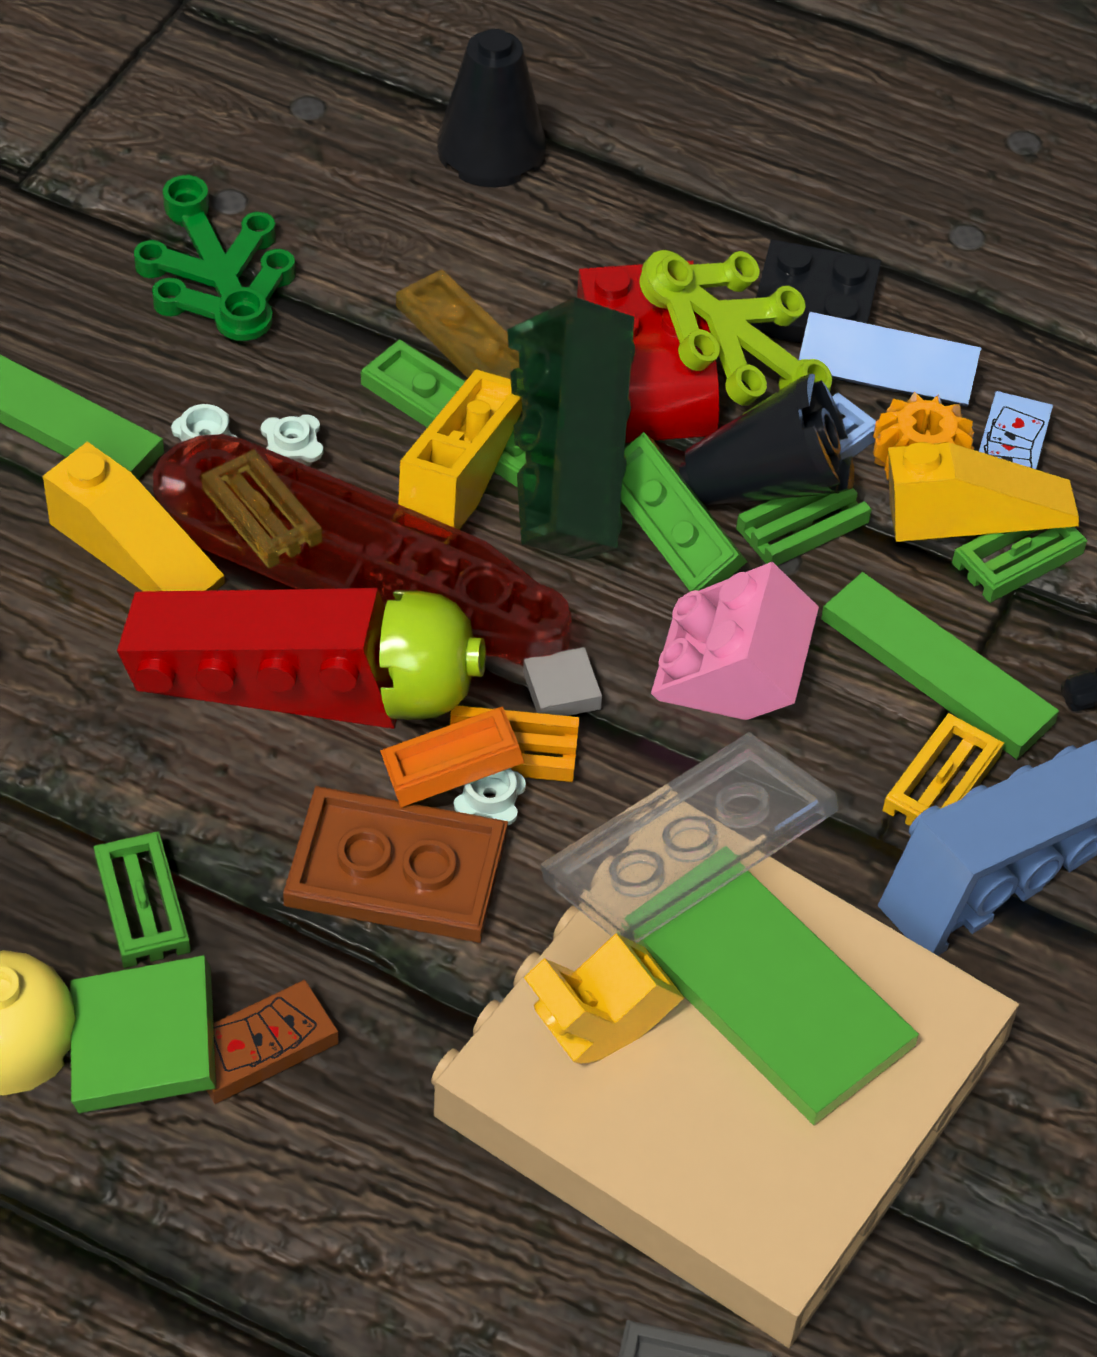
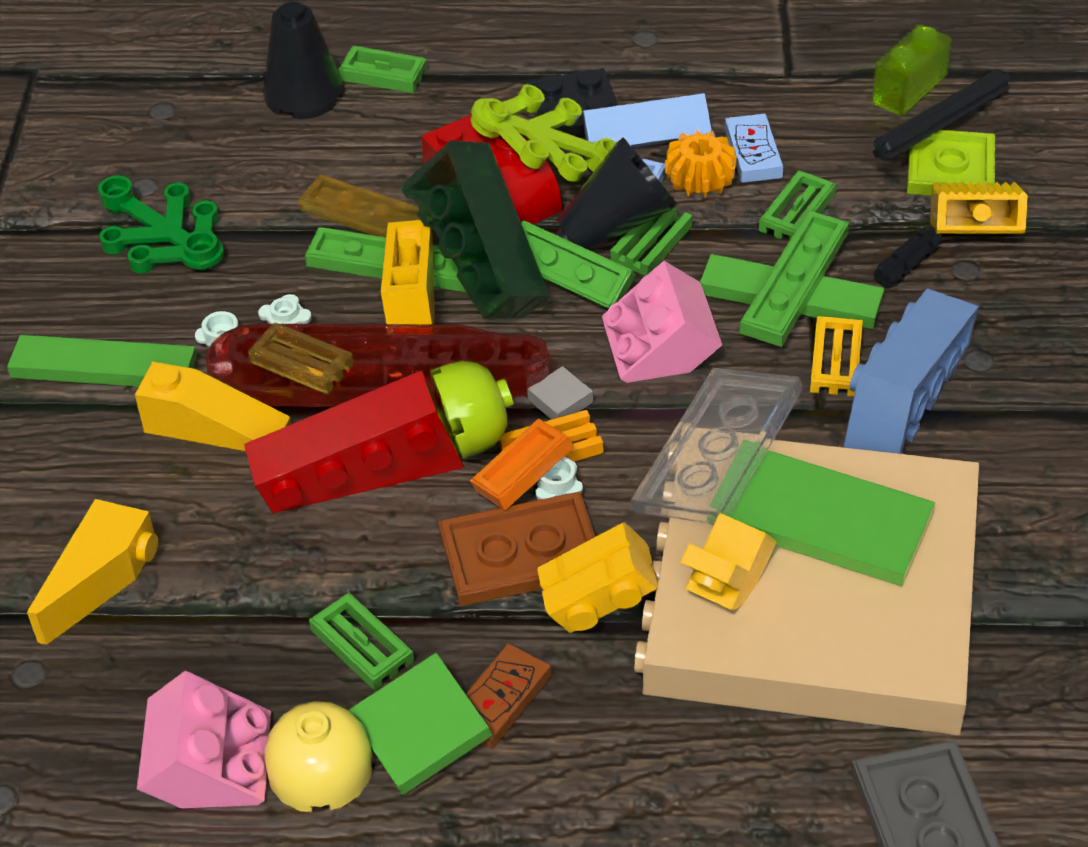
camera: 20 degrees left, 5 degrees down
(448, 947) = (597, 578): none -> yellow brick
(598, 158) = (383, 69): none -> bright green tile
(946, 649) = (794, 278): none -> bright green tile
(964, 492) = (745, 182): yellow slope -> none

